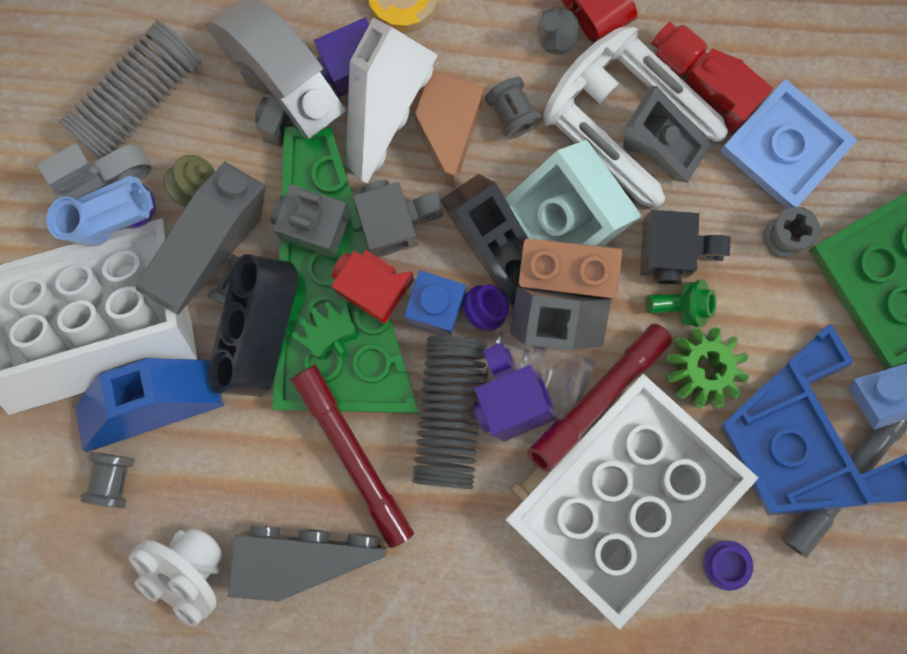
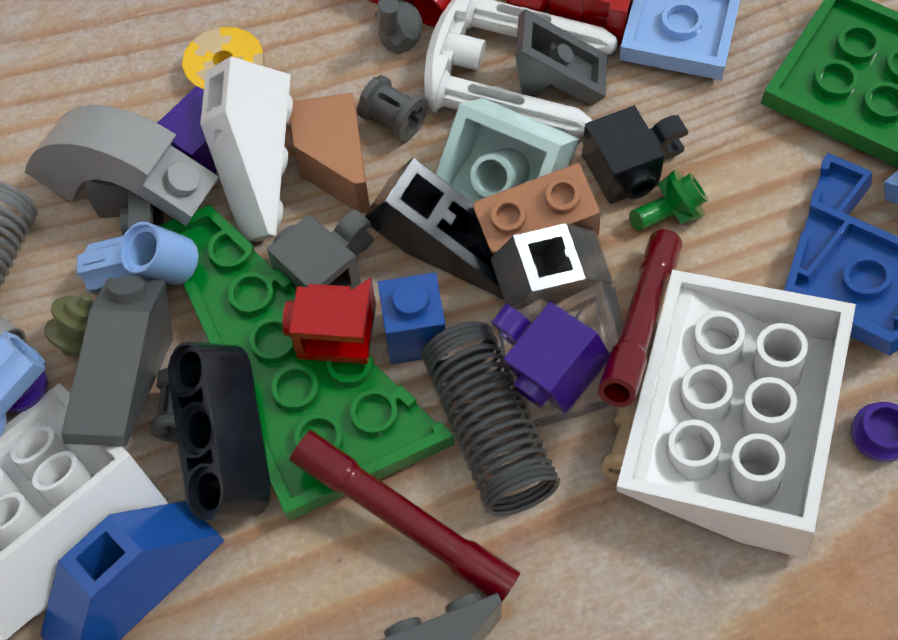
camera: 25 degrees left, 20 degrees down
(255, 153) = (141, 252): none -> light blue piece
(310, 220) = (232, 288): dark grey brick -> none
(328, 331) = (305, 399): green piece -> none
(486, 307) = (468, 299): dark purple plate -> none
(720, 358) = (733, 244): bright green gear -> none
(803, 226) = (735, 83): dark grey bush -> none

